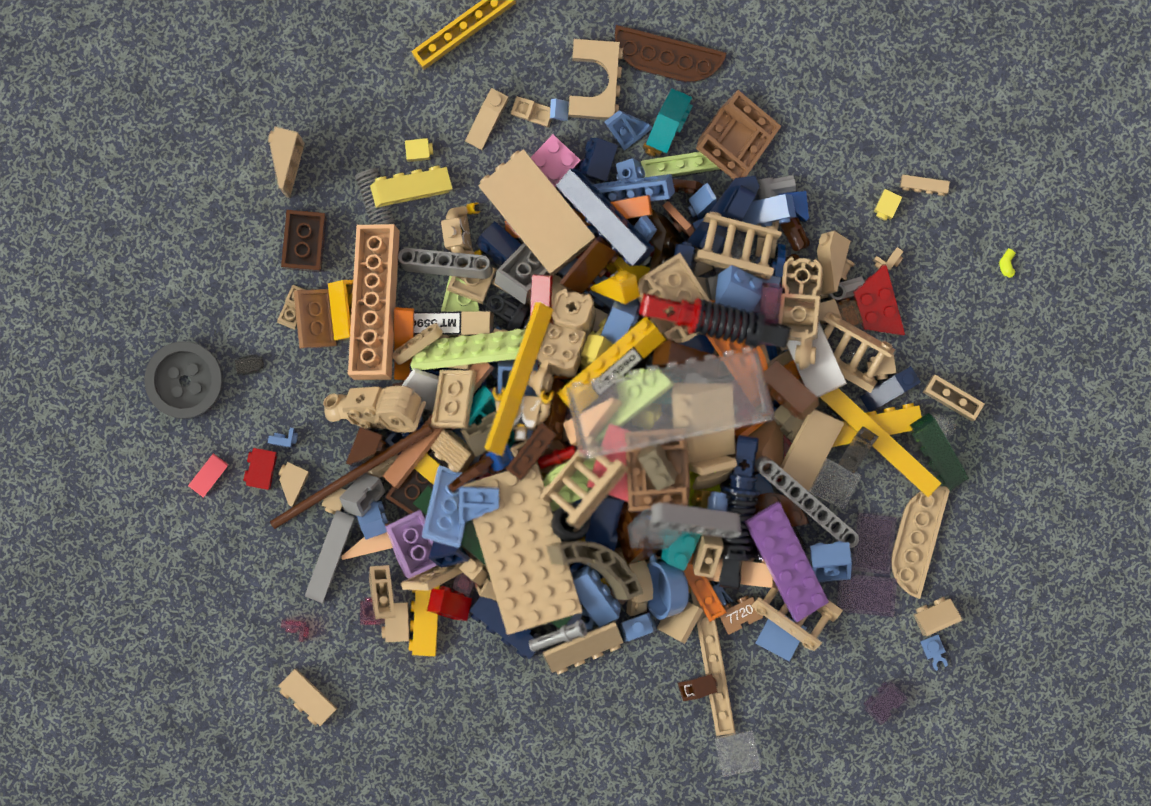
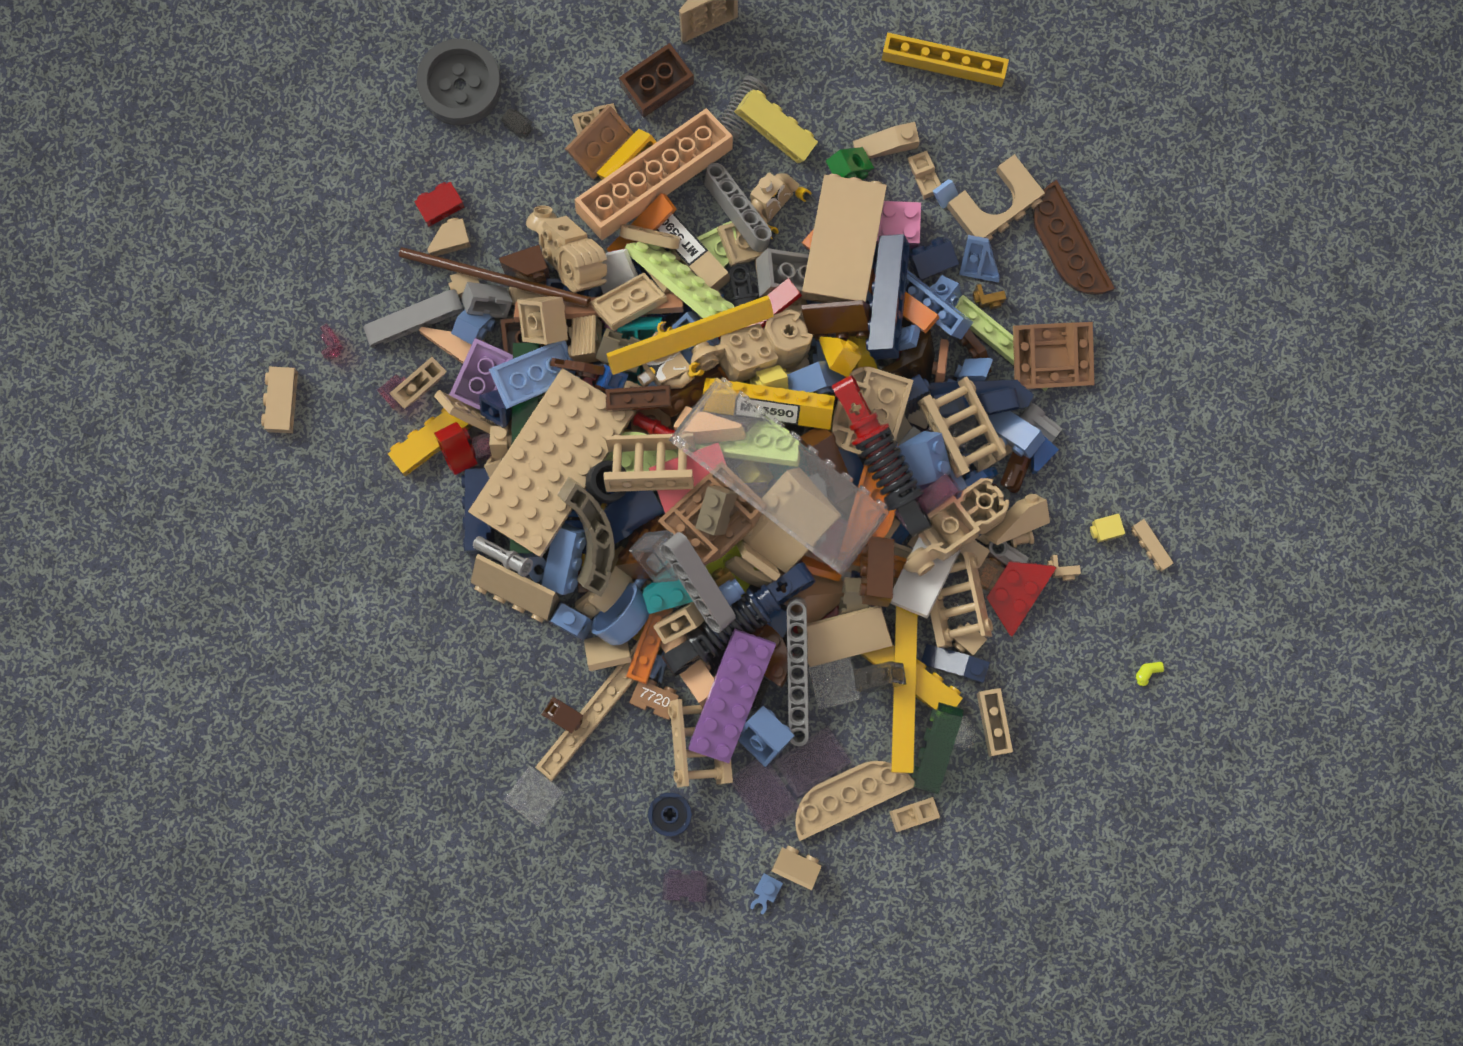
camera: 50 degrees right, 5 degrees down
(208, 475) = (397, 166): coral slope -> none
(280, 440) = (477, 199): medium blue bracket -> none
(397, 628) = (404, 421): tan brick -> none
(415, 469) = (542, 320): none -> tan slope
(418, 150) = (812, 109): light yellow brick -> none
(476, 502) = (557, 389): medium blue wing -> none
(483, 159) = (850, 163): none -> green brick
(497, 243) = (791, 233): dark blue brick -> none
(670, 120) = (1016, 286): teal wedge -> none
(778, 640) = (661, 750): medium blue tile -> none
(839, 671) = (678, 805): none -> dark blue brick
(967, 505) = (914, 814): none -> tan slope

